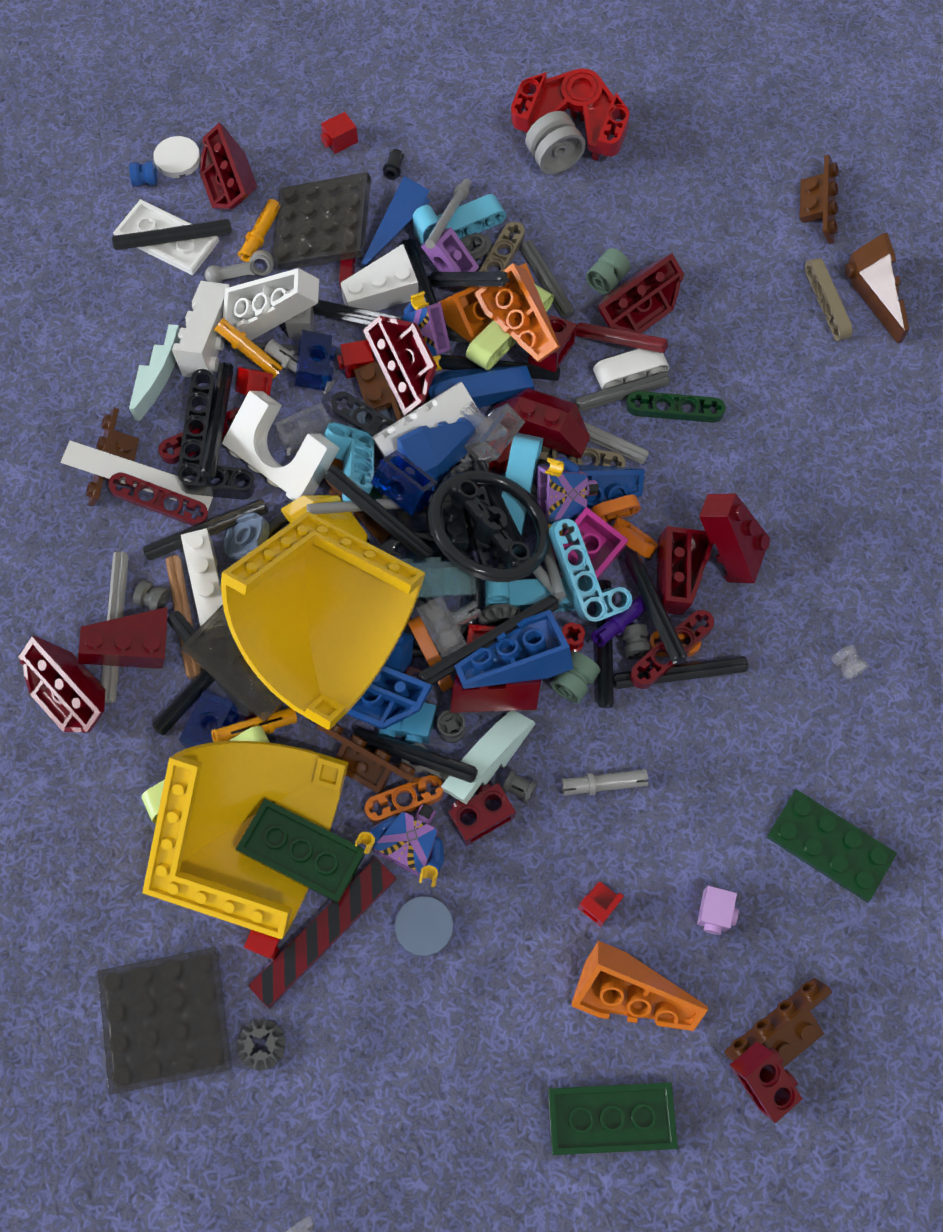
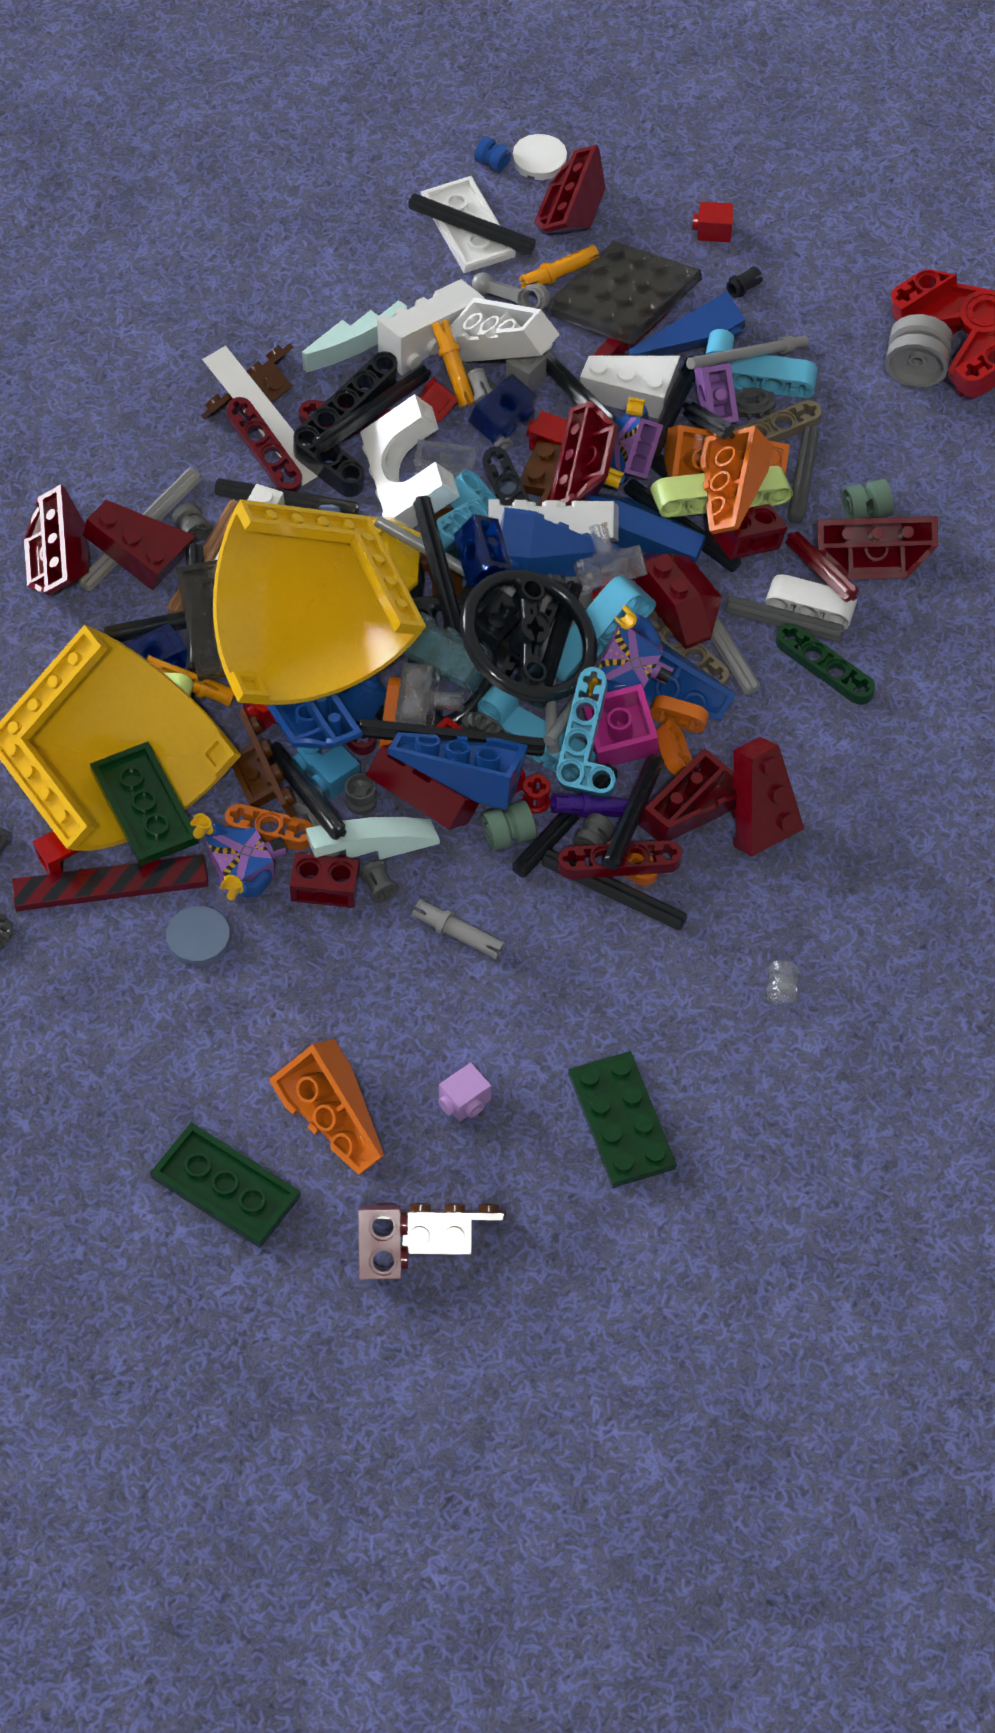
camera: 35 degrees right, 10 degrees down
(600, 903) = (365, 1022): red panel -> none

